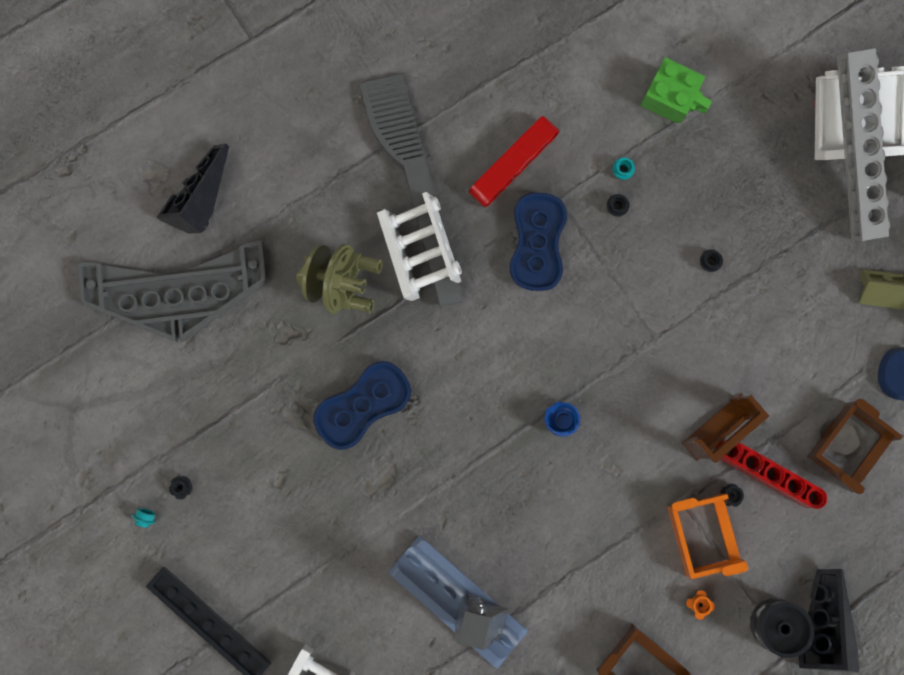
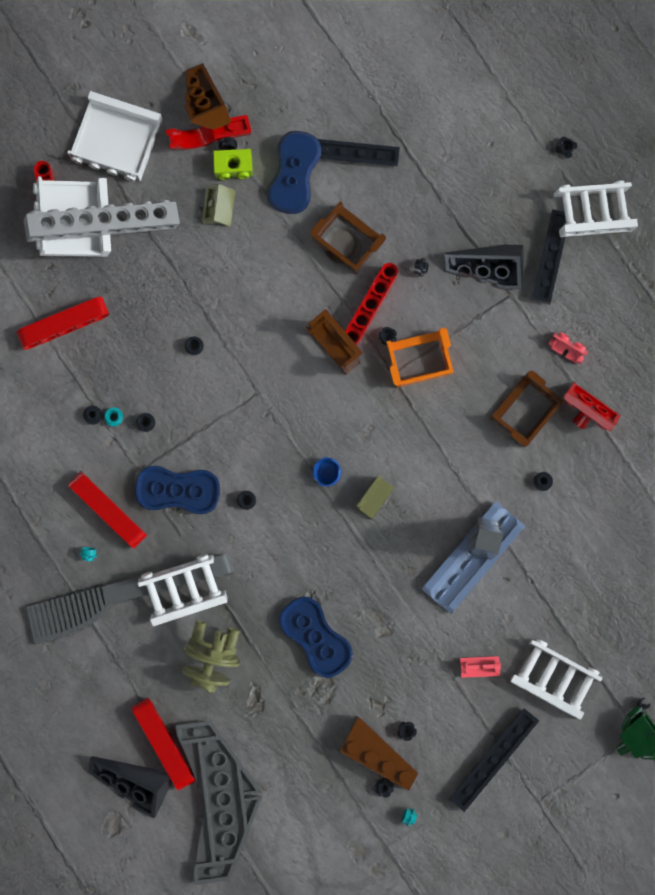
camera: 80 degrees left, 0 degrees up
(217, 479) = (373, 752): none -> reddish brown wedge
(241, 227) = (163, 744): none -> red beam
(241, 515) = (412, 731): none -> black plate
(323, 608) = (480, 667): none -> coral hinge
(463, 141) = (88, 553): none -> teal plate
(526, 316) = (242, 495): none -> black plate
(531, 478) = (375, 497): none -> olive panel
(625, 151) = (96, 419): none -> black plate
(675, 92) = (47, 372): bright green hinge -> none
(707, 605) = (474, 359): orange plate -> none
(733, 110) = (62, 323): none -> red beam
(787, 640) = (497, 294): black wheel -> none
(821, 538) = (421, 267): none -> black plate

